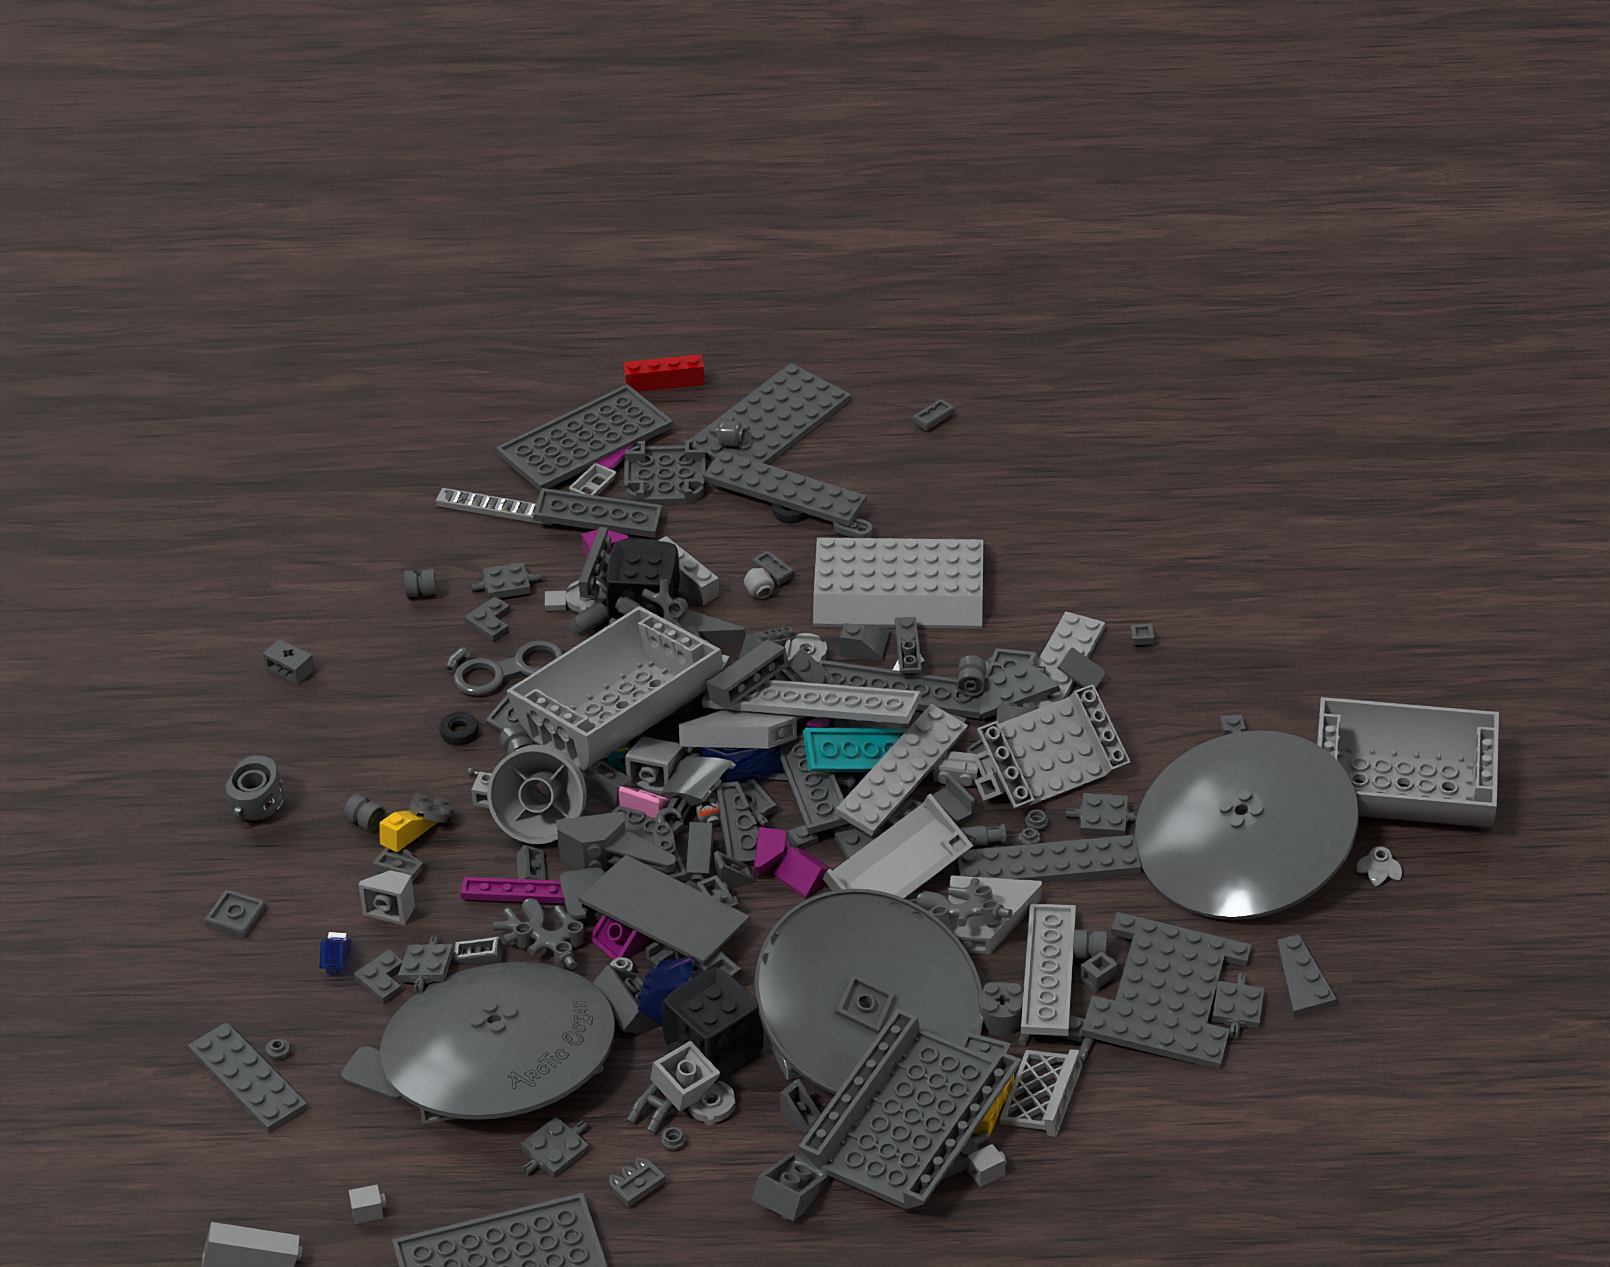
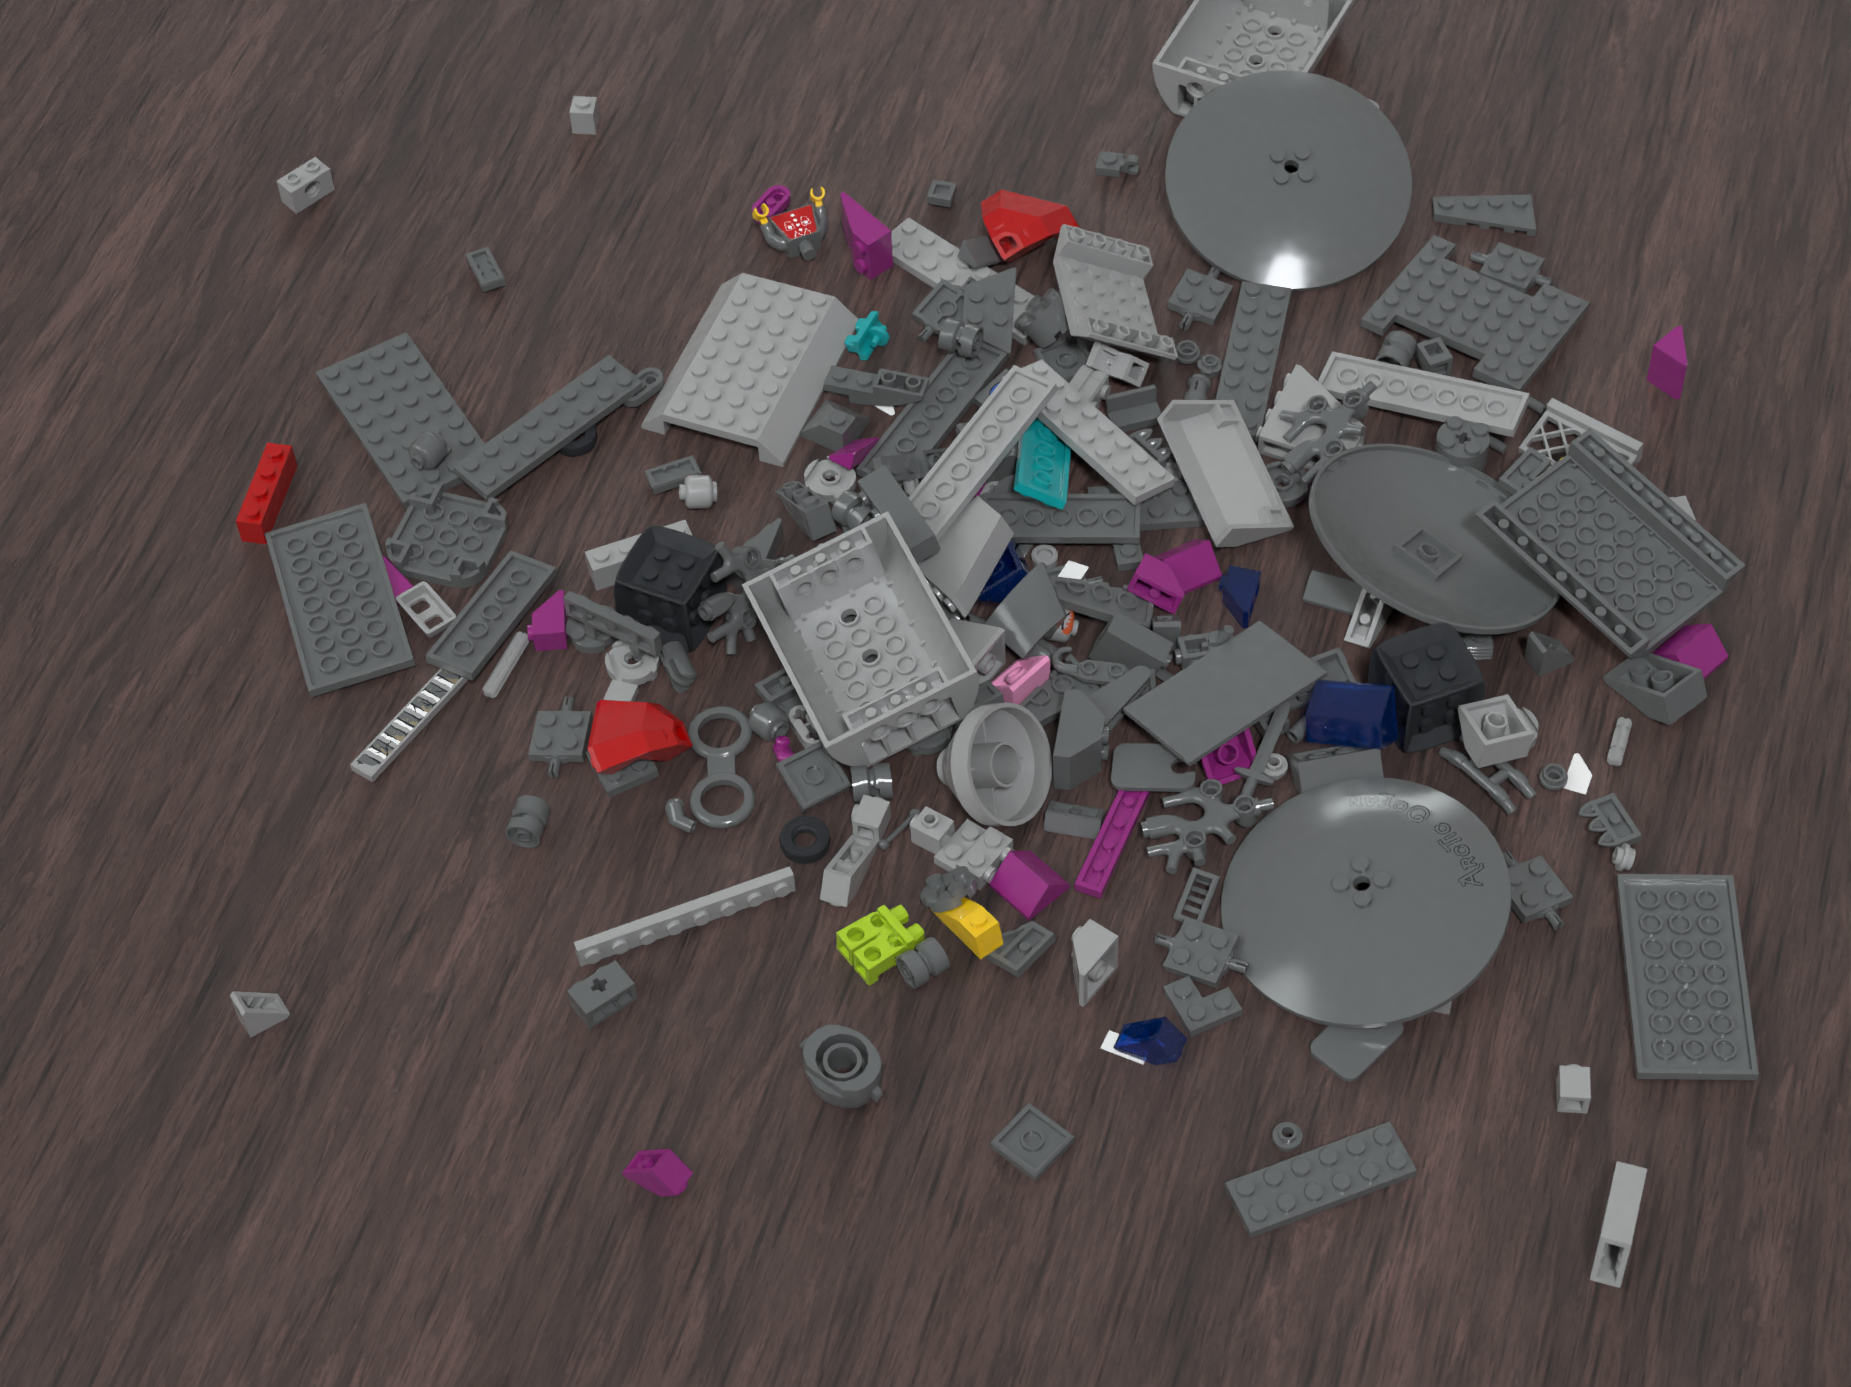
camera: 70 degrees left, 10 degrees up
(151, 729) = (658, 1172): none -> magenta slope
(224, 506) = (258, 1010): none -> light grey slope
(368, 684) = (684, 916): none -> light grey plate
(378, 785) = (877, 940): none -> lime hips
(434, 754) = (847, 870): none -> light grey slope
(463, 855) = (1027, 883): none -> magenta slope
(473, 821) = (976, 849): none -> light grey plate
(486, 754) = (871, 817): none -> light grey brick
(507, 605) = (632, 732): none -> red brick
(562, 536) = (505, 665): none -> light grey axle
(603, 1196) = (1623, 857): none -> light grey plate
(604, 955) = (1255, 773): none -> dark grey sword
(685, 1158) = (1578, 775): none -> white sticker
(727, 1174) = (1619, 741): none -> light grey axle
(761, 803) = (1073, 570): none -> white sticker
(778, 905) = (1240, 592): none -> clear blue slope
(780, 790) = (1045, 554): none -> light grey tile
(831, 652) = (853, 452): none -> magenta slope
(838, 1205) = (1695, 646): none -> magenta slope
(962, 632) = (869, 335): none -> teal hips
(969, 299) = (305, 185): none -> light grey brick
(1056, 563) = (796, 230): none -> torso
(1056, 595) = (866, 238): none -> magenta slope
(1079, 543) = (777, 200): none -> magenta plate
(1119, 416) = (584, 115): none -> light grey brick
(1124, 682) = (1022, 222): none -> red brick
(1162, 1123) = (1669, 363): none -> magenta slope

